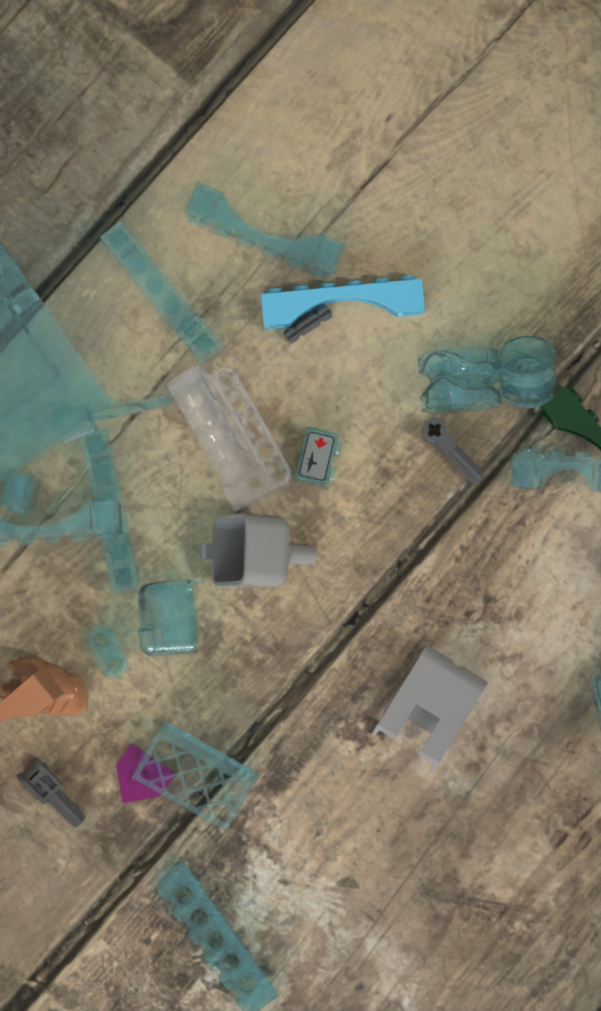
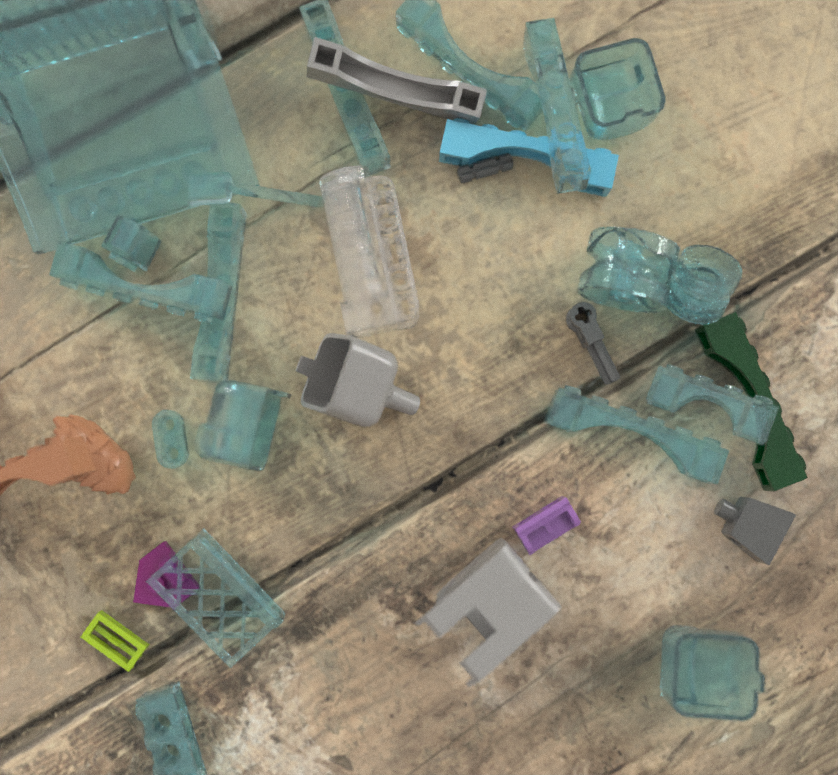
camera: 15 degrees right, 0 degrees up
(47, 787) = (59, 560): dark grey connector -> none
(95, 835) = (121, 630): none -> lime tile
(206, 278) = (351, 71): none -> light grey arch
(317, 457) = (451, 306): brick -> none
(353, 252) = (565, 138): none -> clear light blue arch
(401, 222) = (617, 89): none -> clear light blue piece
(460, 623) = (546, 524): none -> medium lavender hinge
(568, 522) = (692, 456): none -> clear light blue arch

